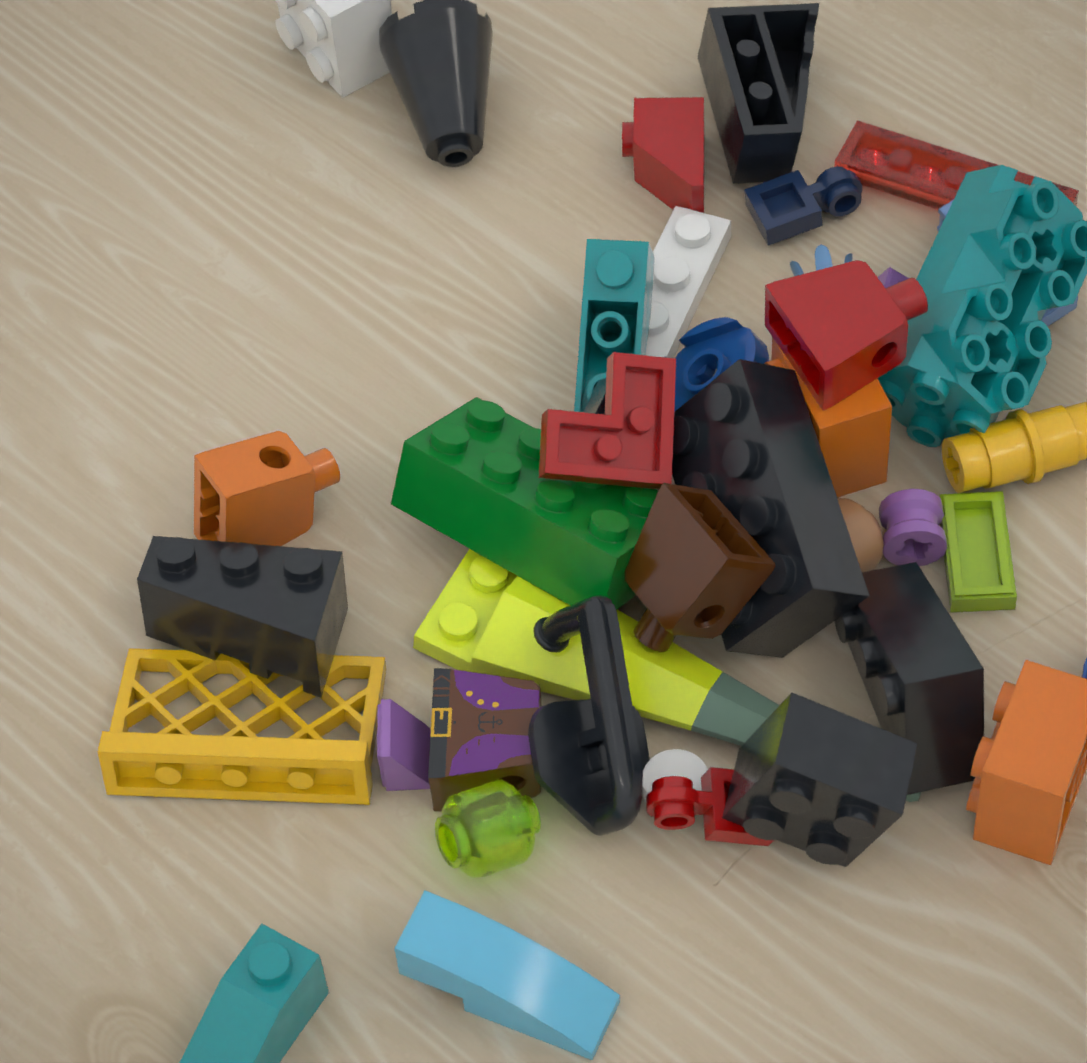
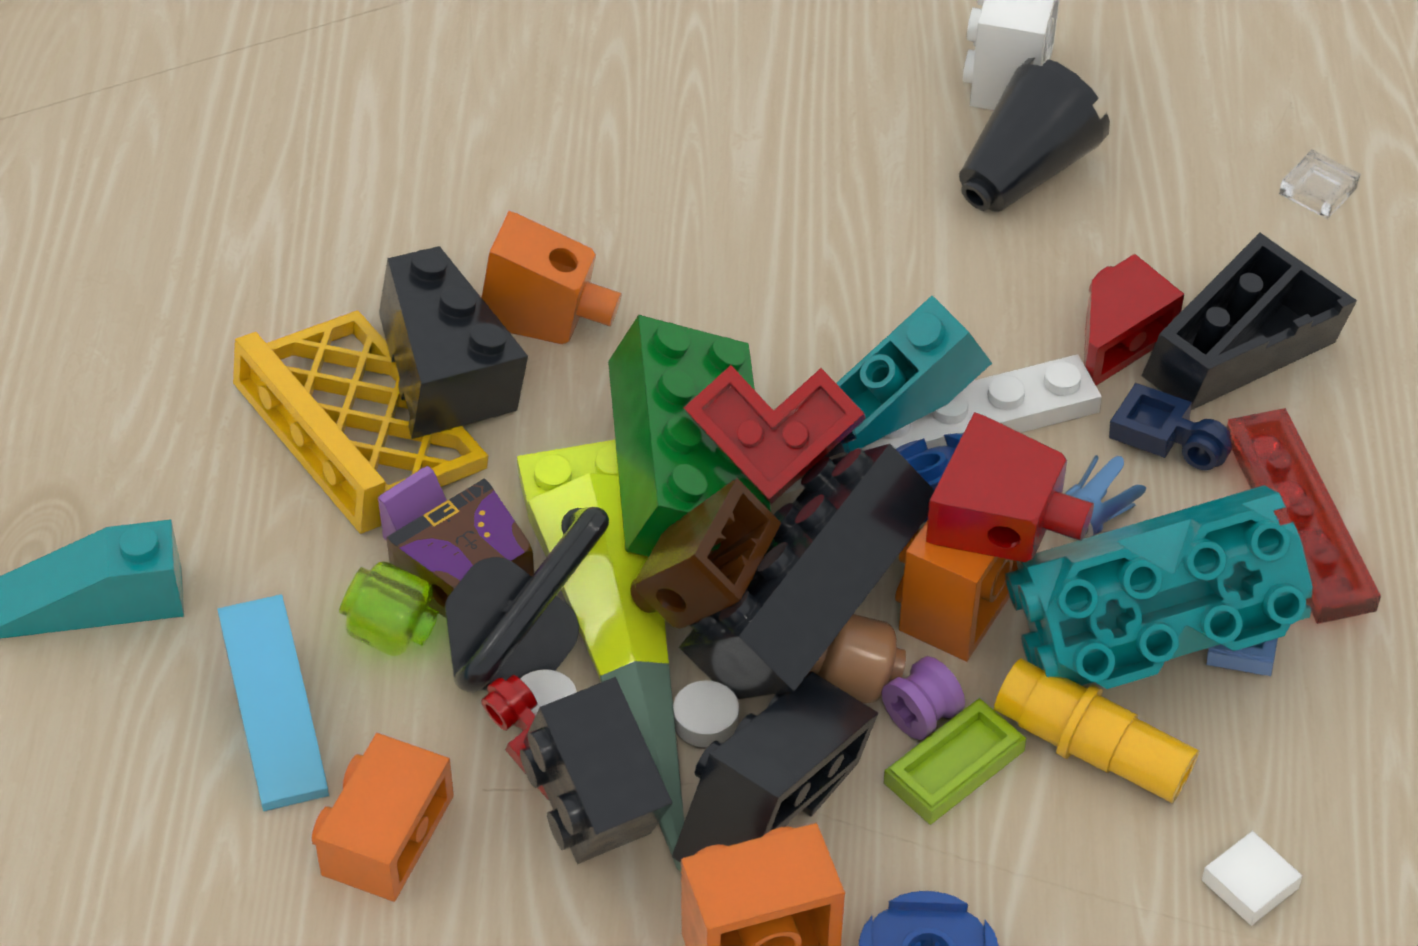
camera: 45 degrees right, 5 degrees down
(697, 968) = (383, 816): none -> orange brick
(787, 672) = (705, 713): none -> white tile

